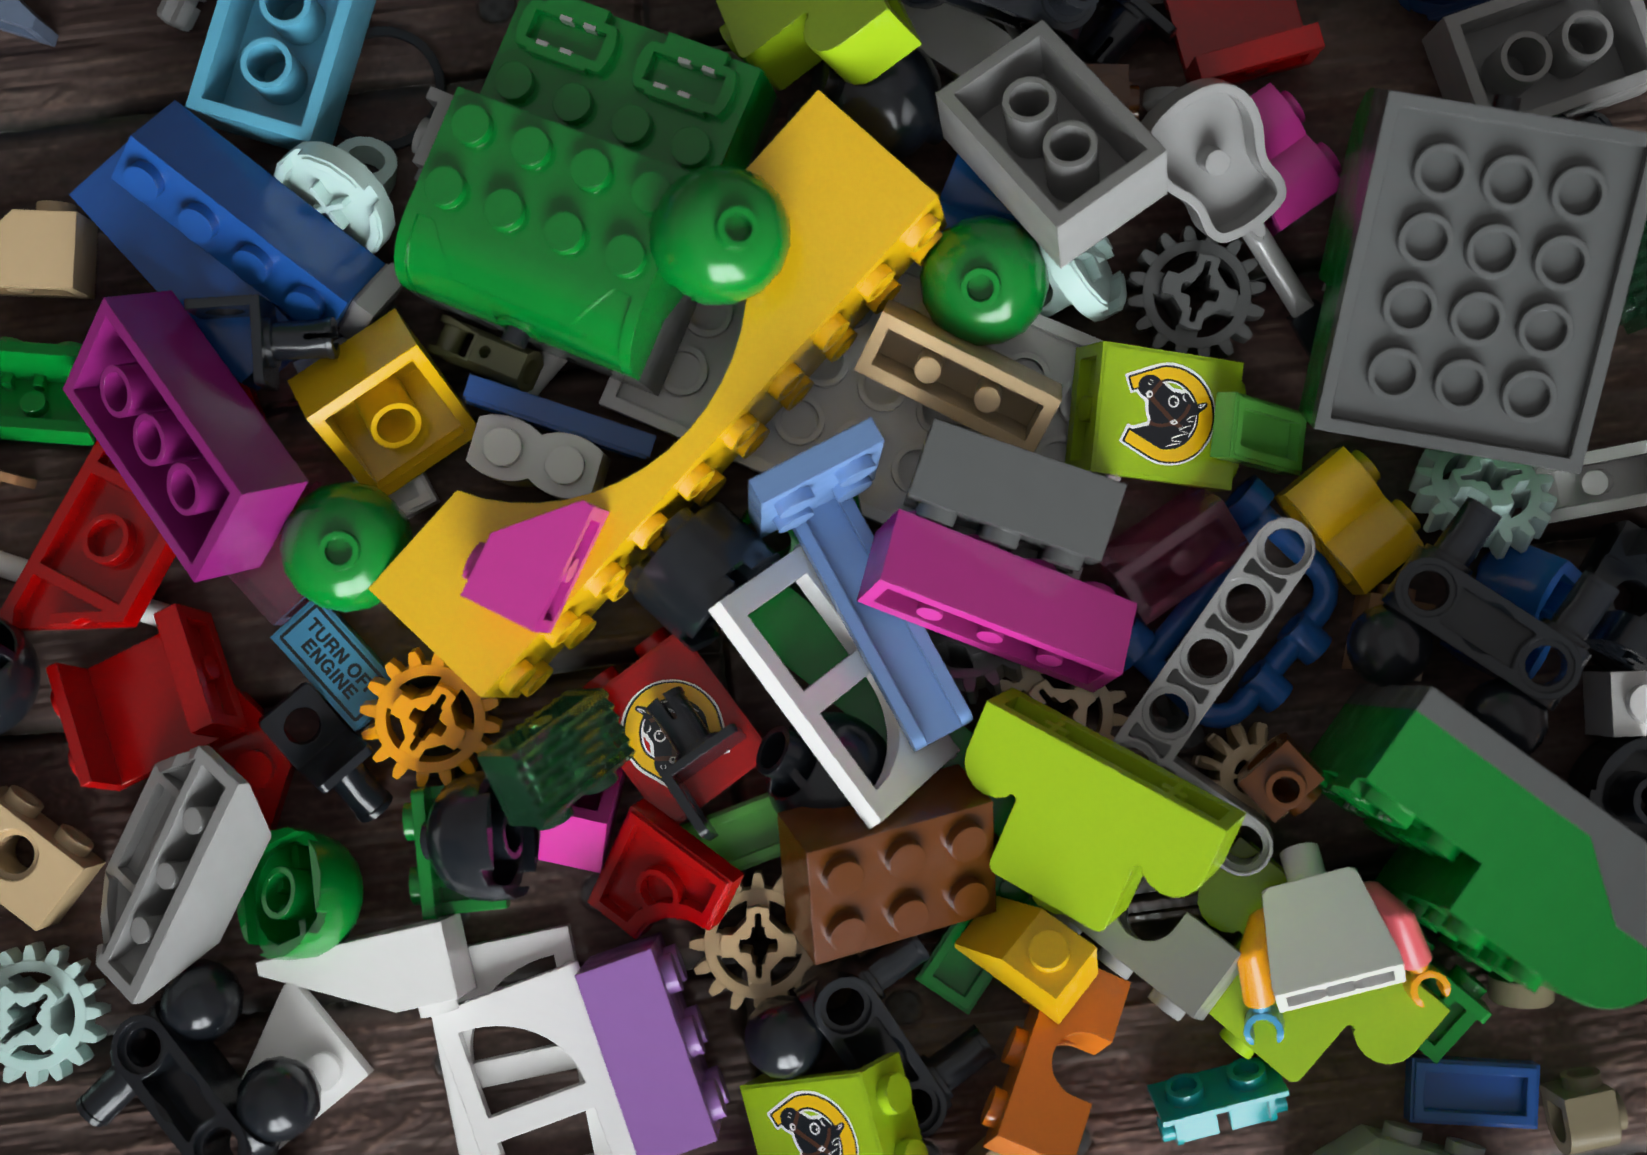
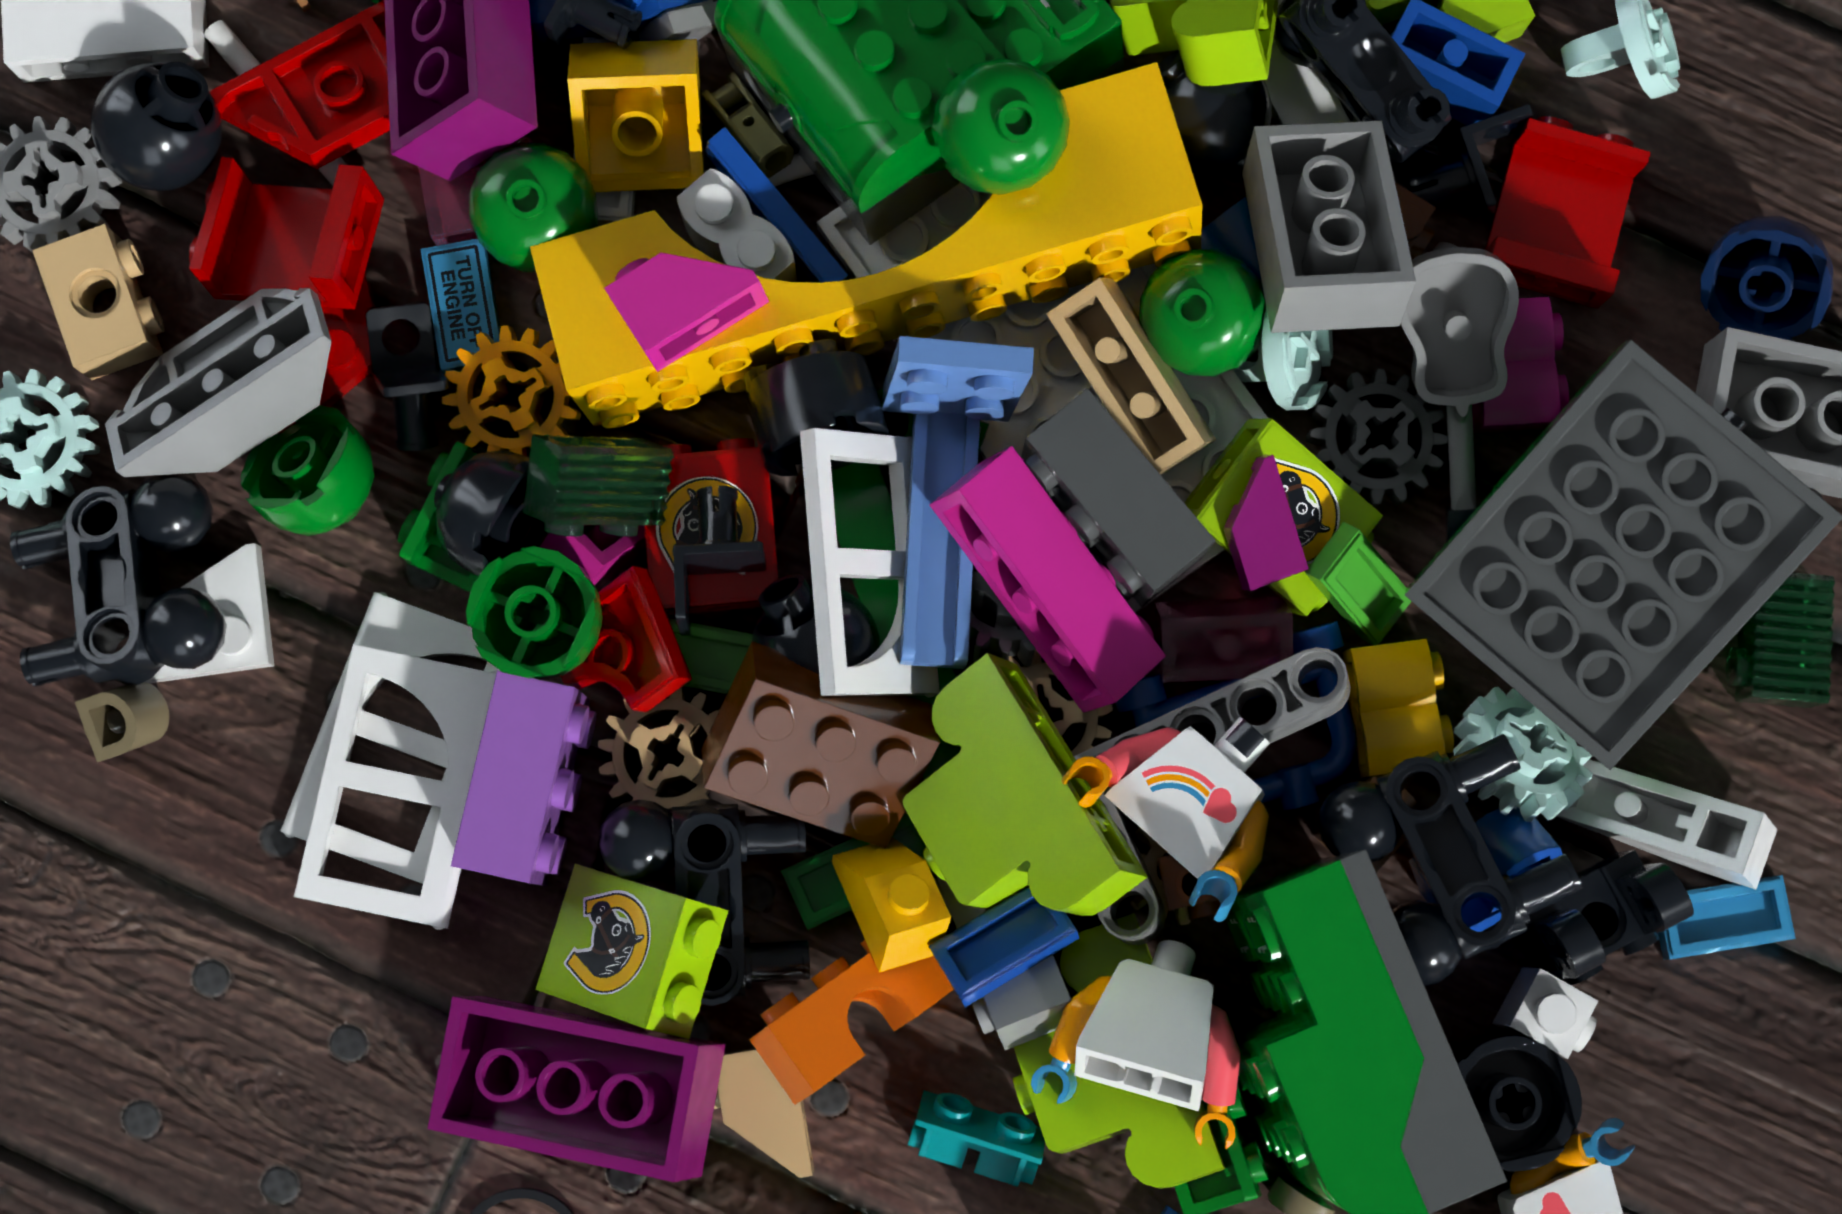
camera: 30 degrees right, 5 degrees down
(389, 969) = (349, 583): white slope -> none
(575, 905) = (534, 613): none -> green cylinder
(1149, 944) = (1001, 945): none -> blue tile
(1155, 443) = (1263, 530): none -> magenta tile
(1245, 728) = (1189, 801): none -> torso

